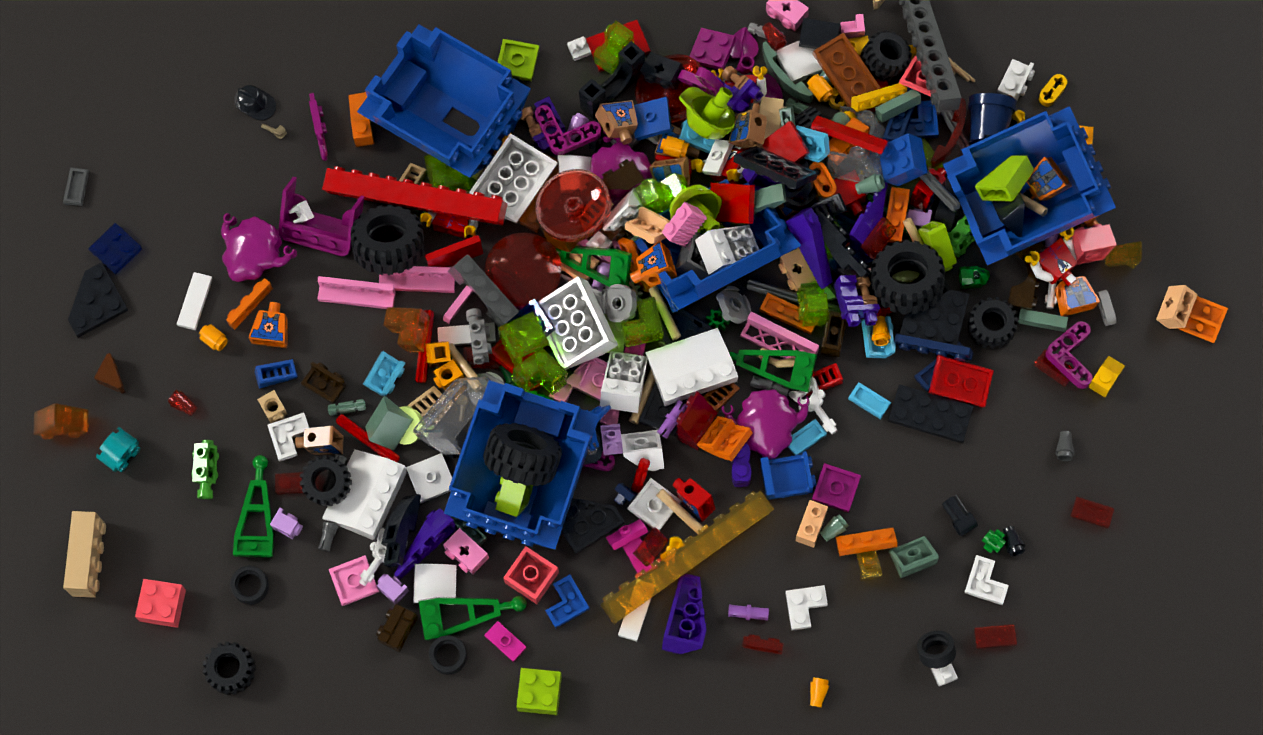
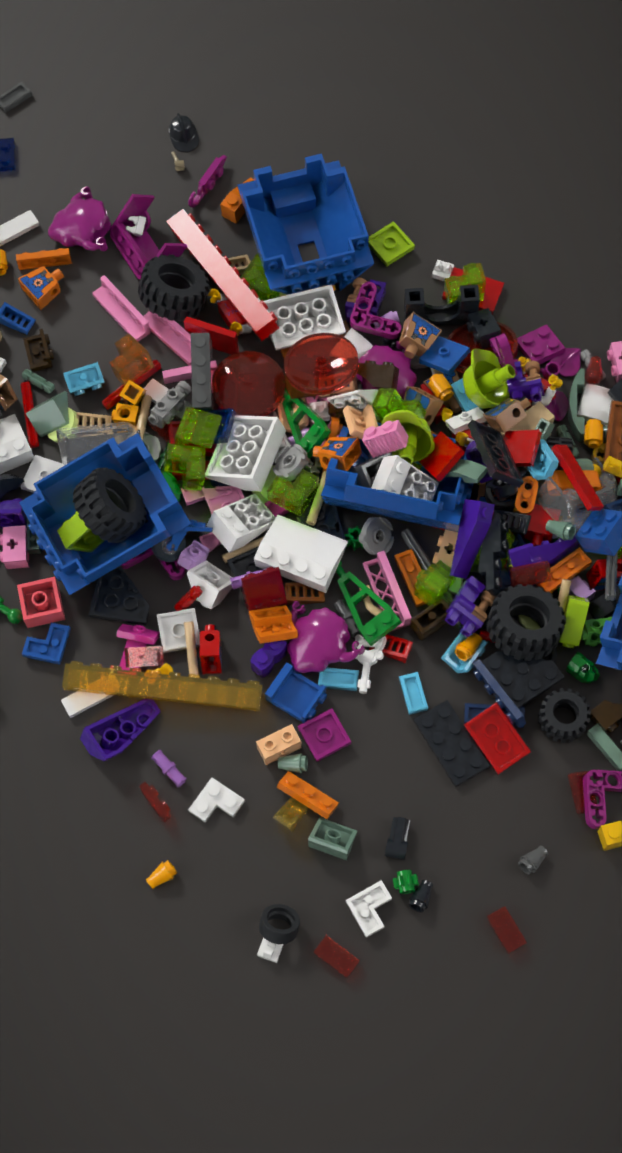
camera: 40 degrees right, 5 degrees down
(624, 494) = (164, 603): dark blue tile -> none

